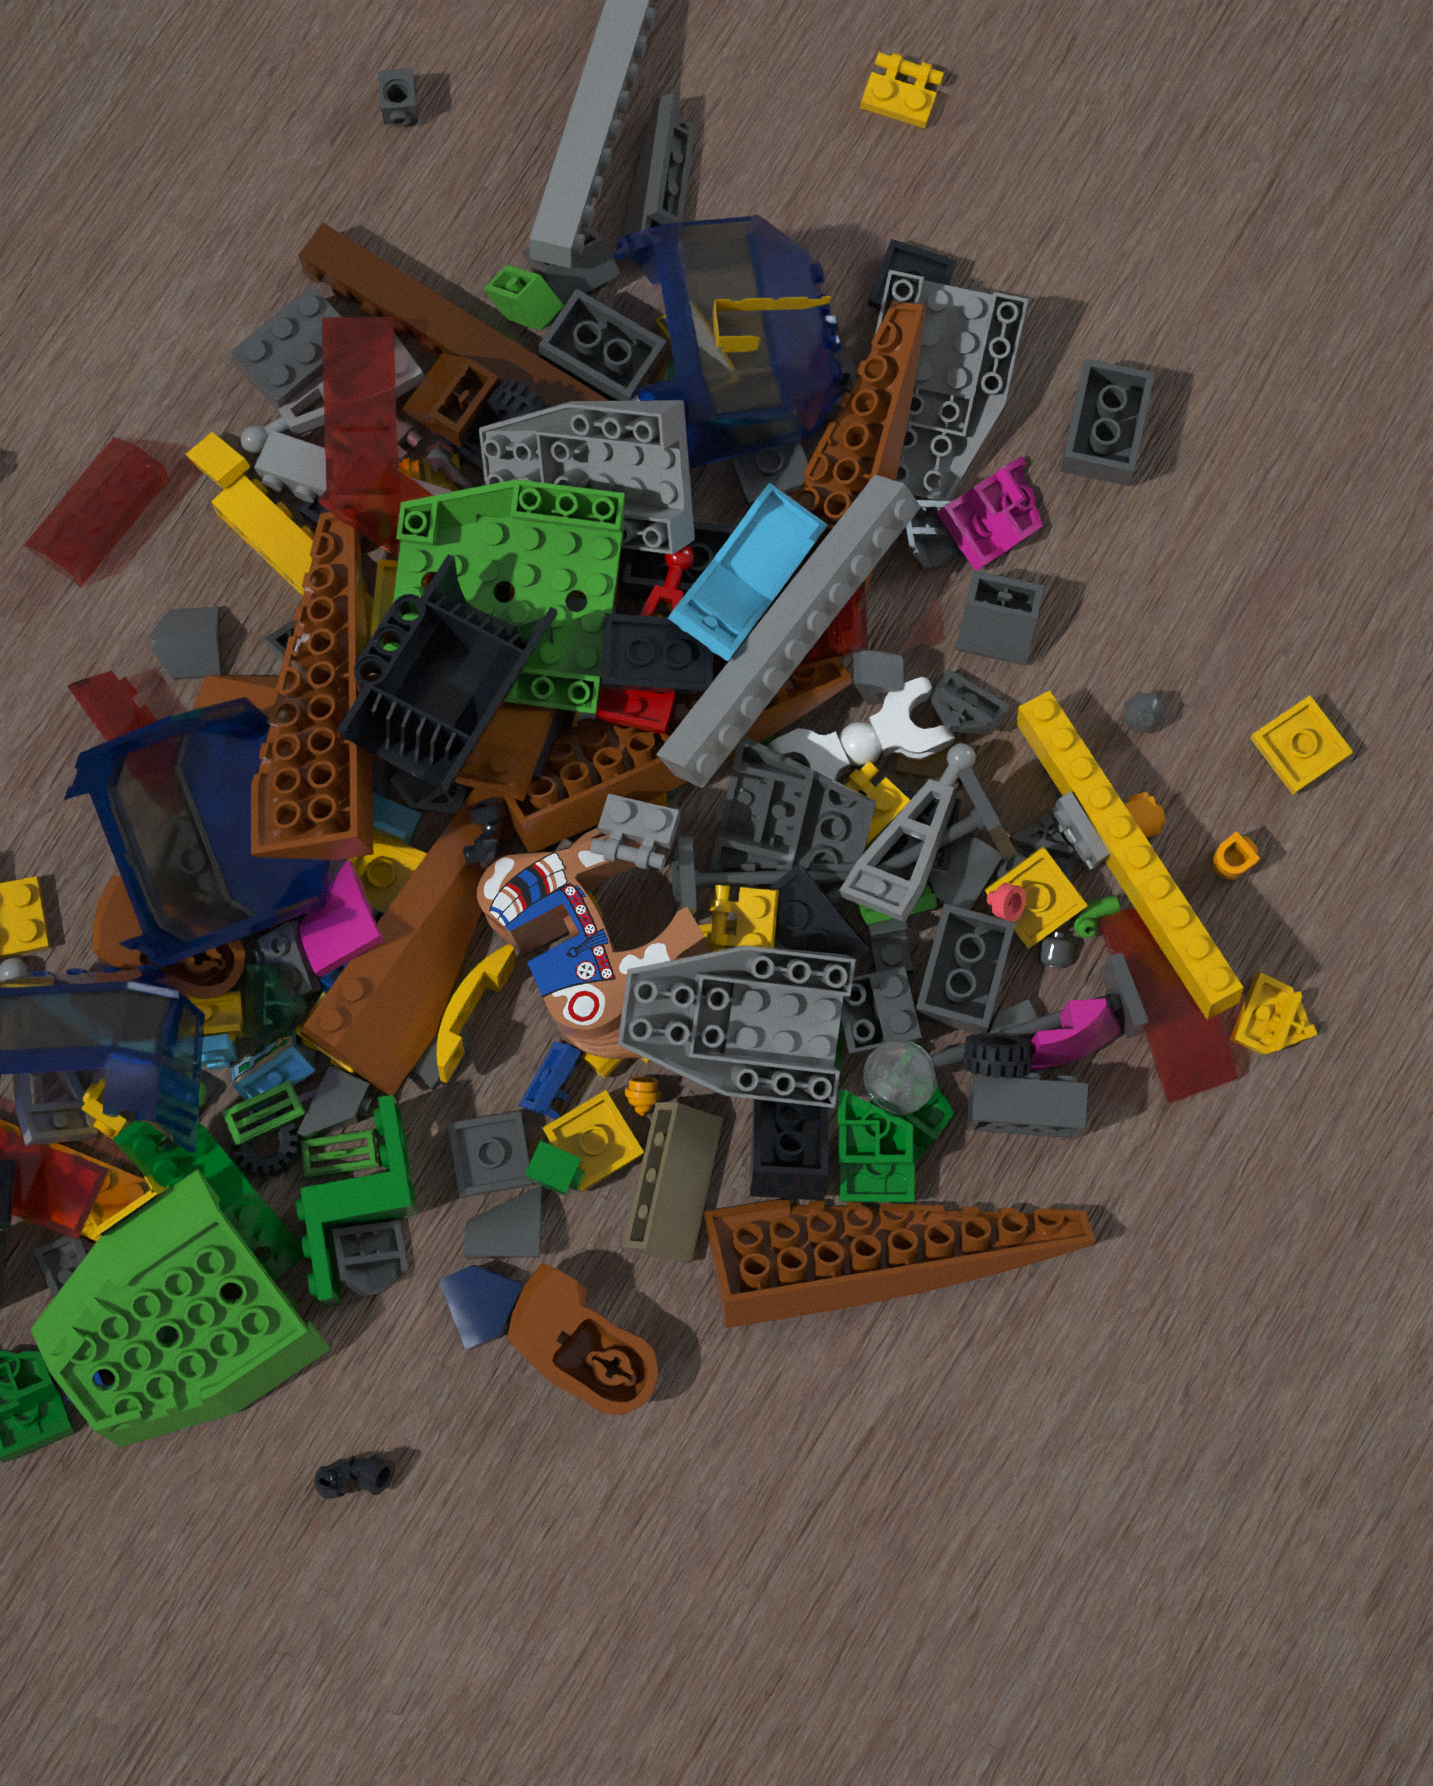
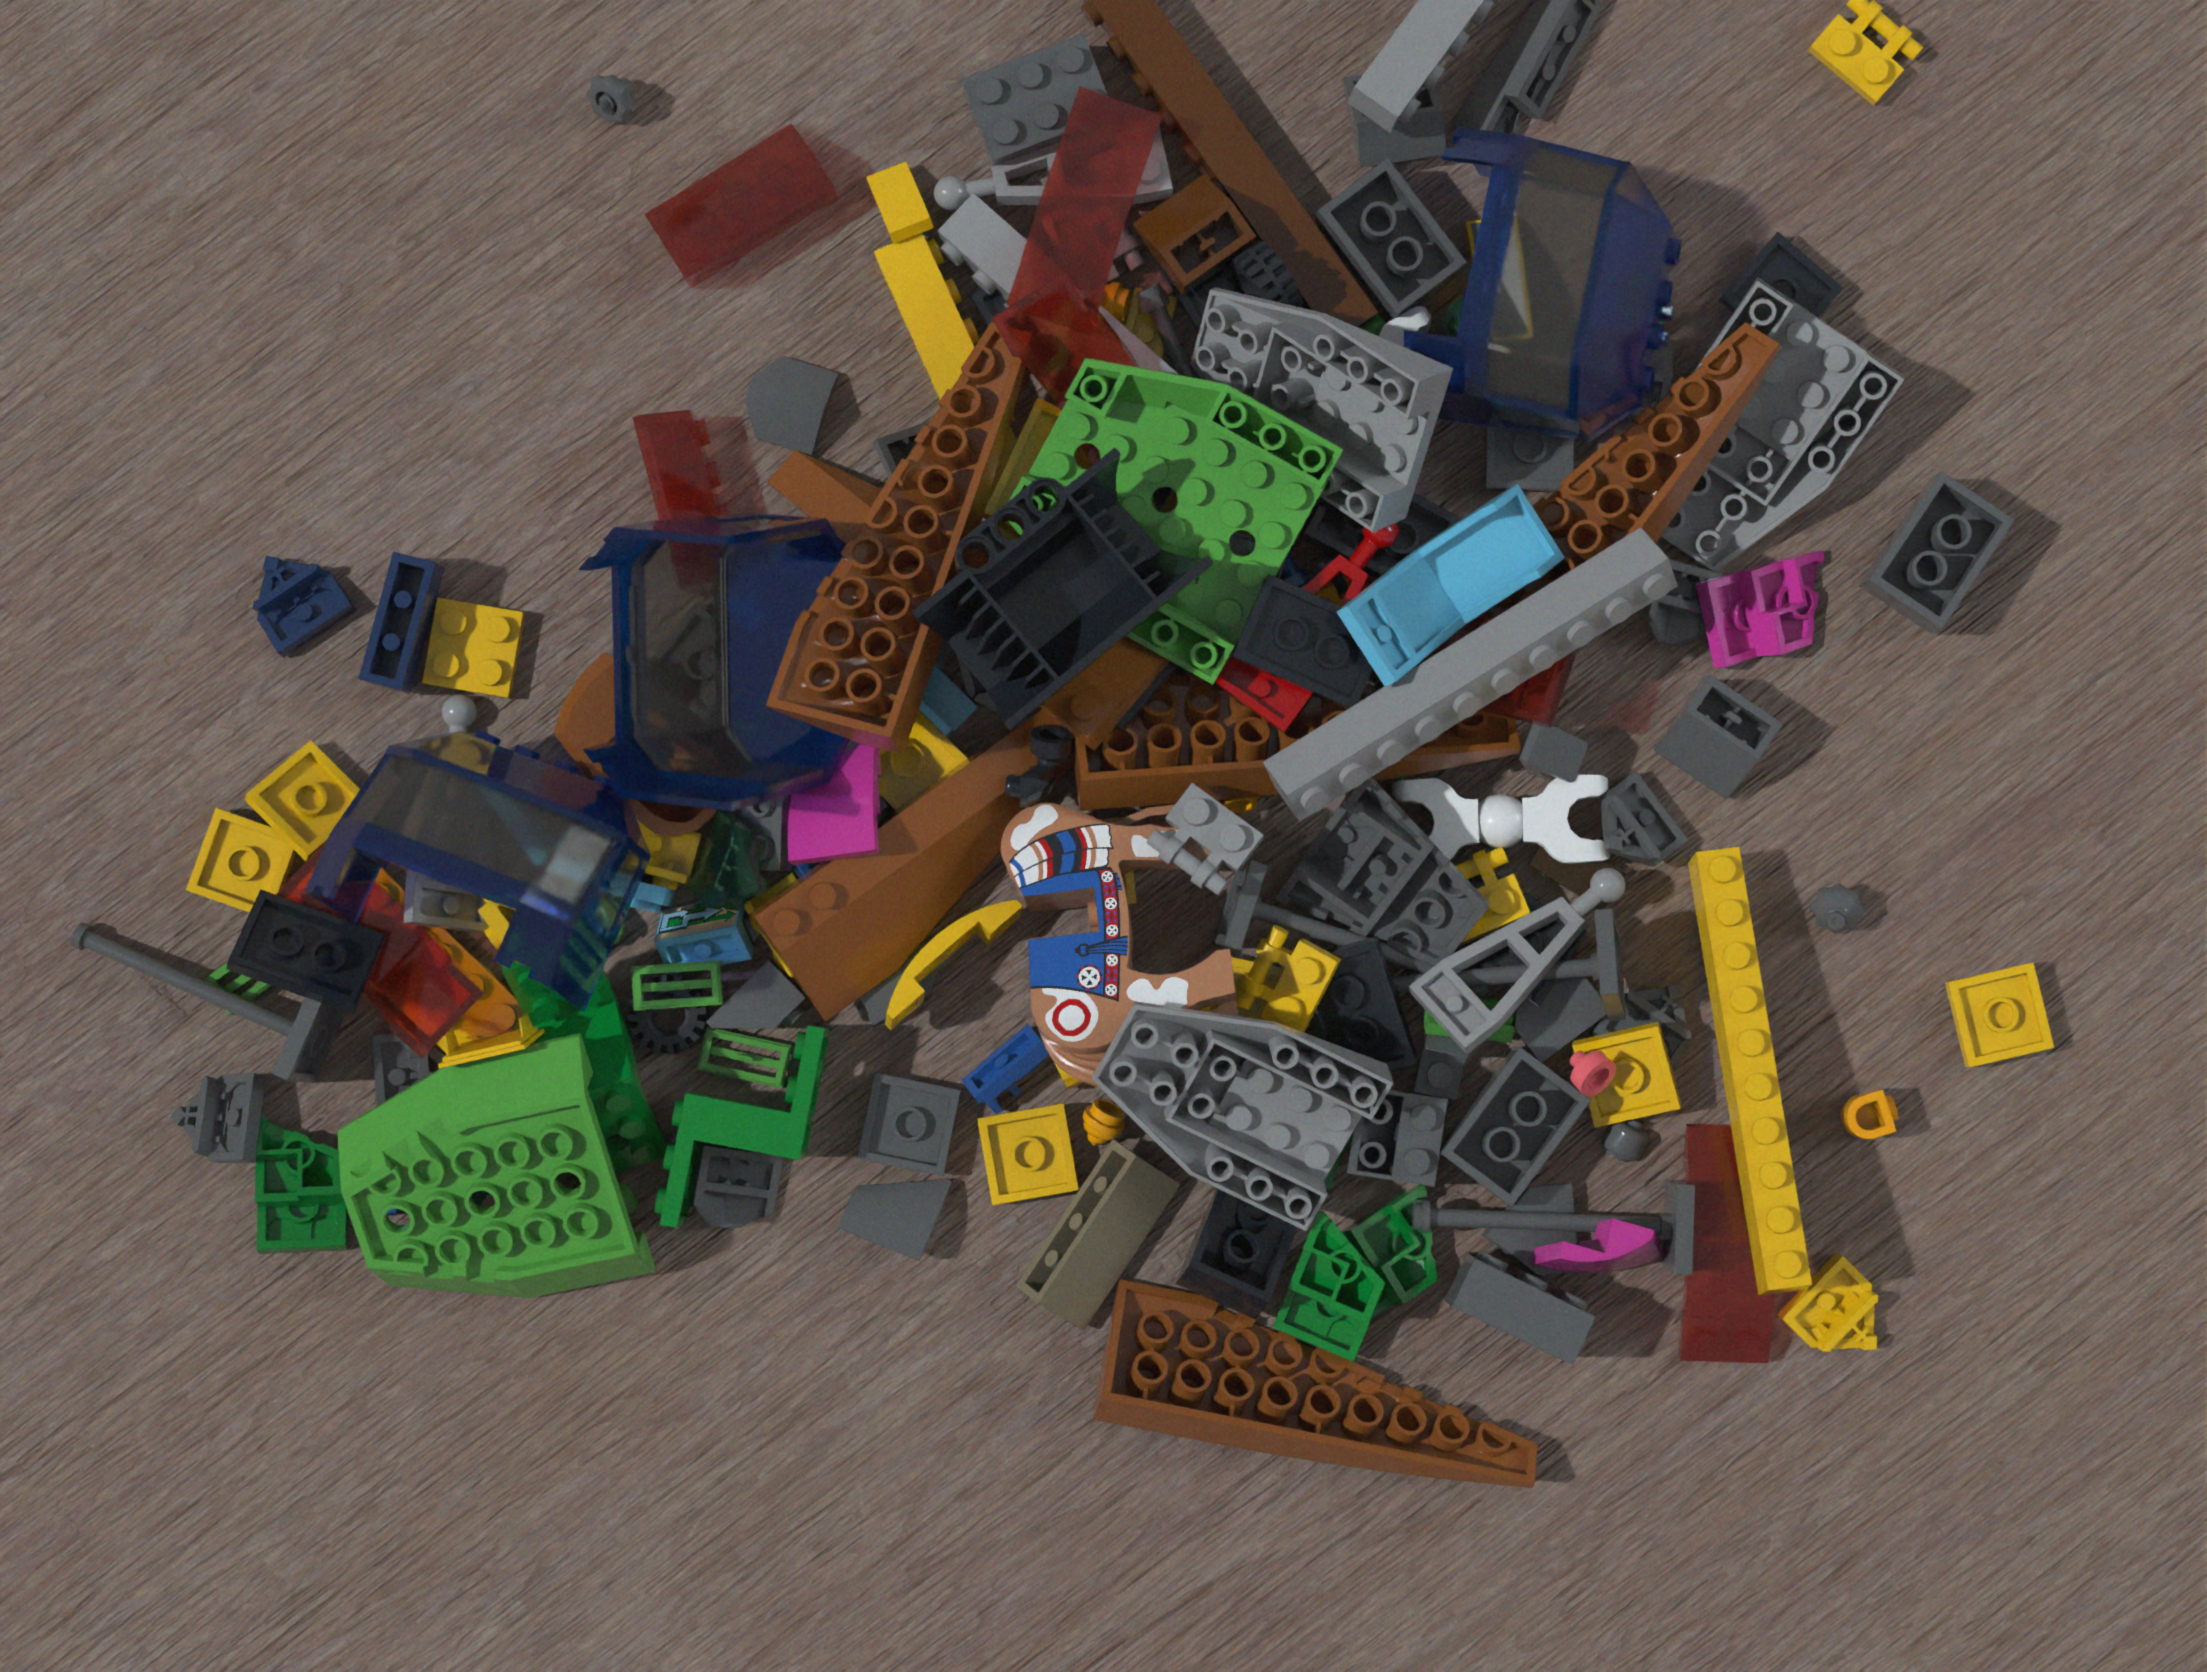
camera: 20 degrees right, 10 degrees up
(338, 1477) = (612, 1413): black arm -> none
(480, 1303) = (838, 1284): dark blue slope -> none
(524, 297) = (1322, 143): bright green brick -> none
(555, 1169) = (973, 1175): green brick -> none
(579, 1346) = (925, 1379): dark orange piece -> none
(751, 343) = (1557, 332): yellow piece -> none
(900, 1077) = (1392, 1222): clear tile -> none
(997, 1055) = (1509, 1246): black tyre -> none
(1079, 832) = (1705, 1021): light grey plate -> none
(1087, 919) = (1672, 1123): bright green arm -> none
(1146, 813) = (1788, 1027): light orange plate -> none

